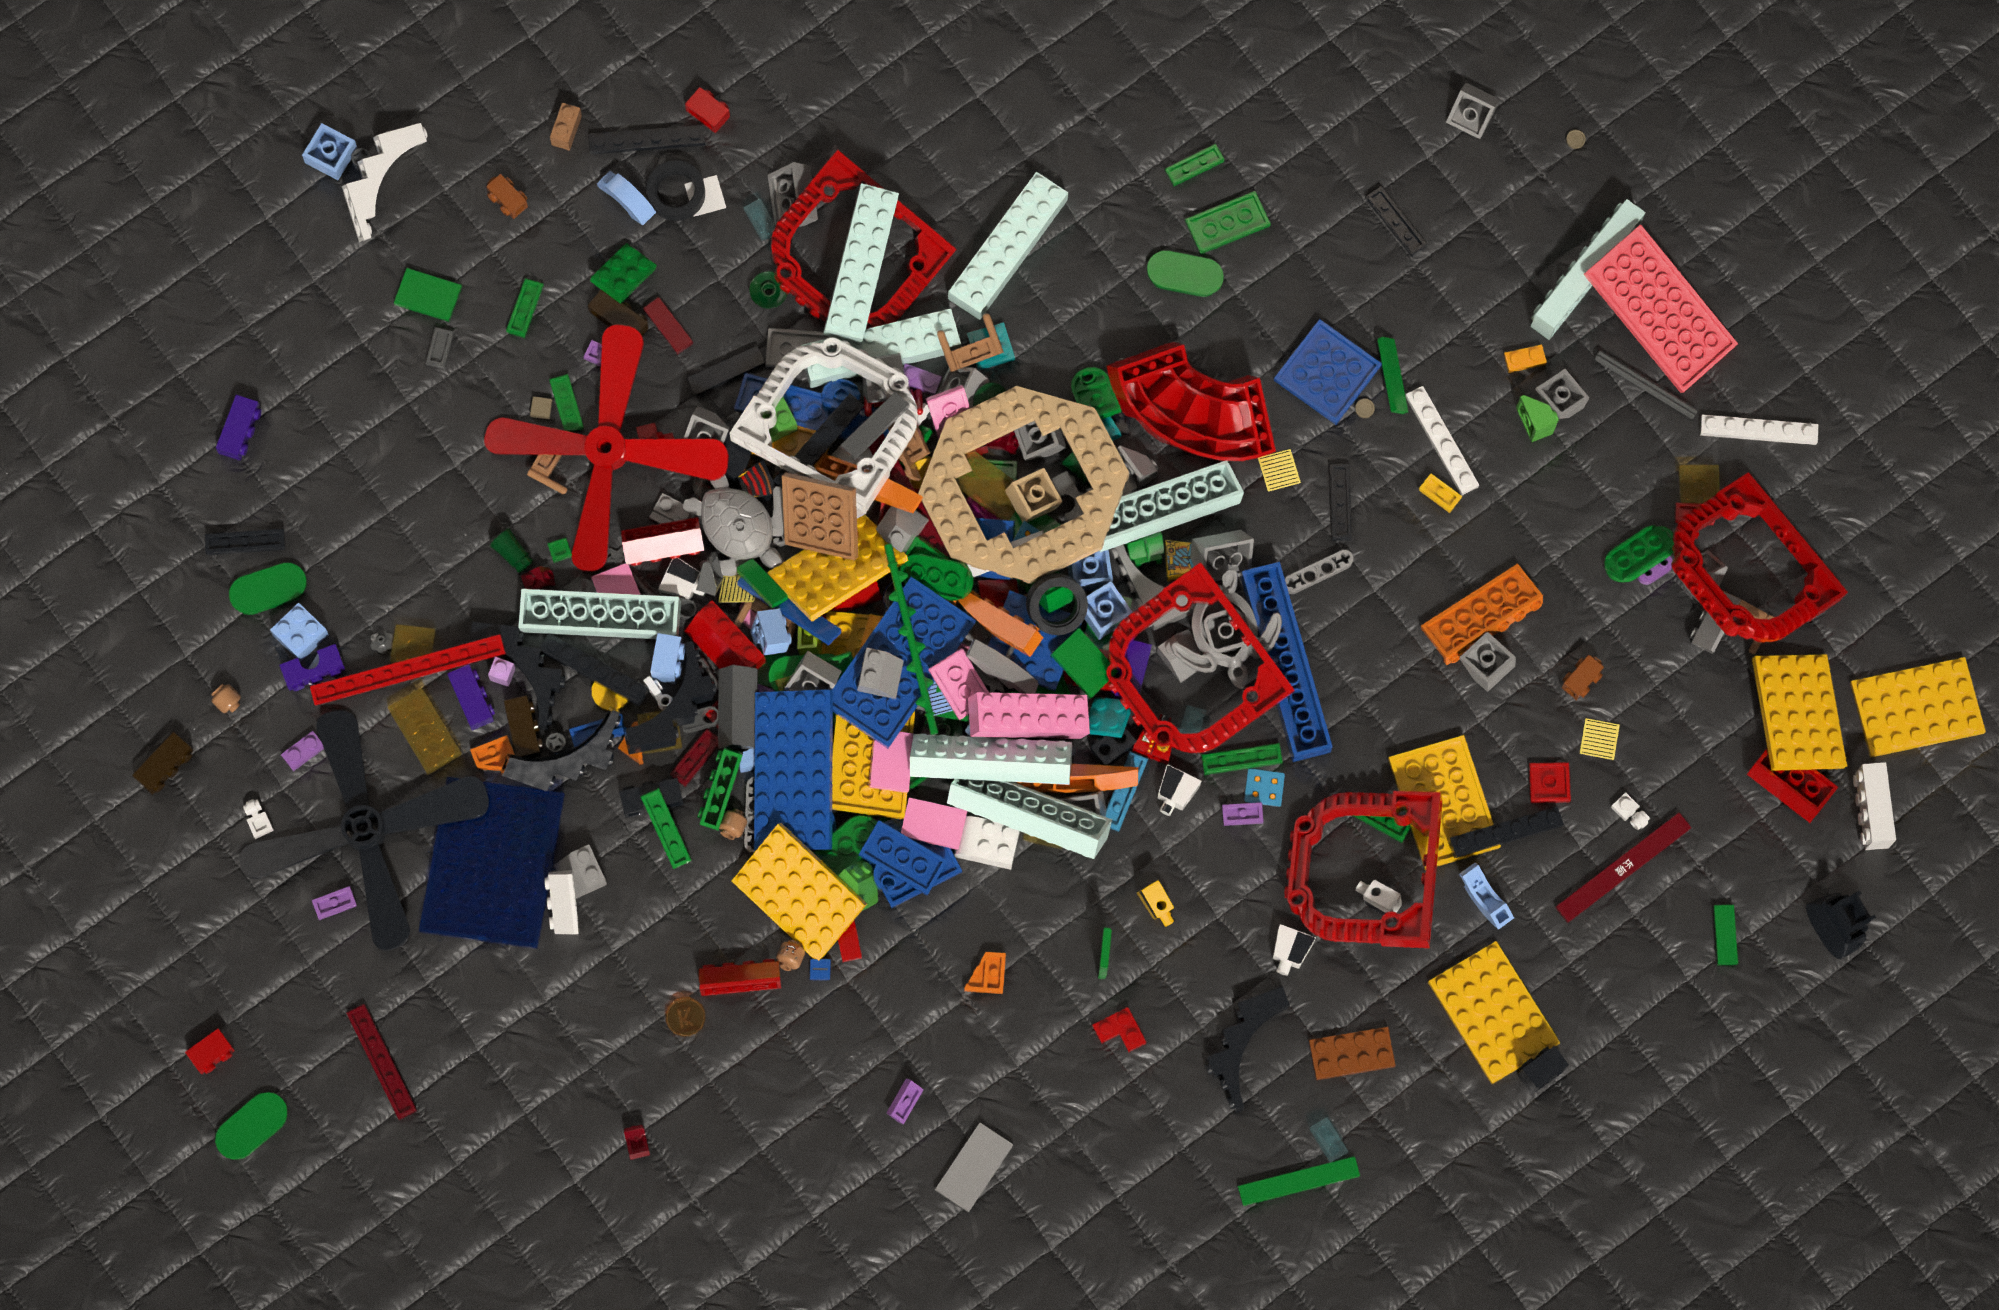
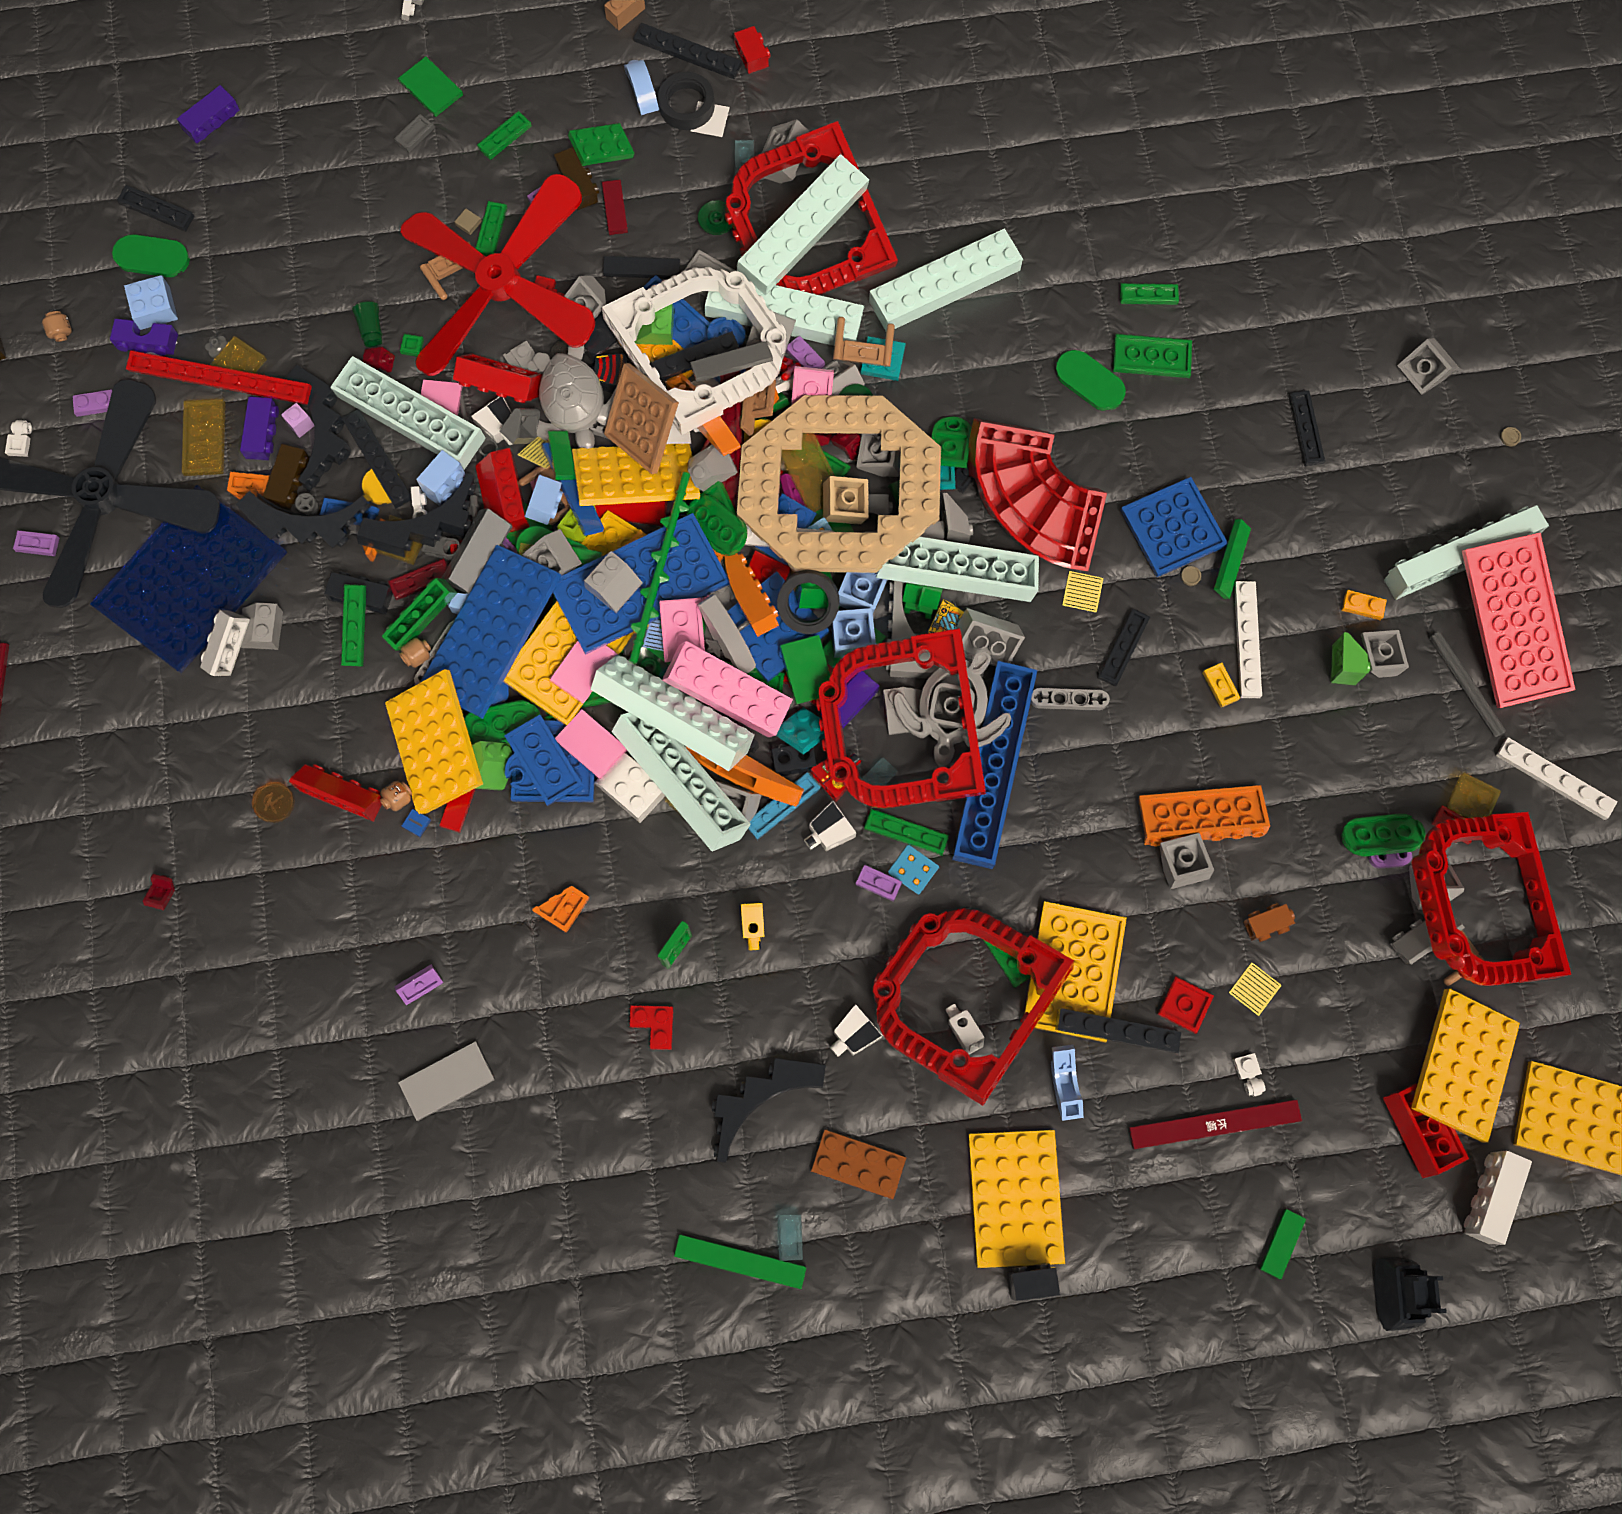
camera: 30 degrees right, 0 degrees up
(503, 192) = (540, 32): dark orange brick -> none

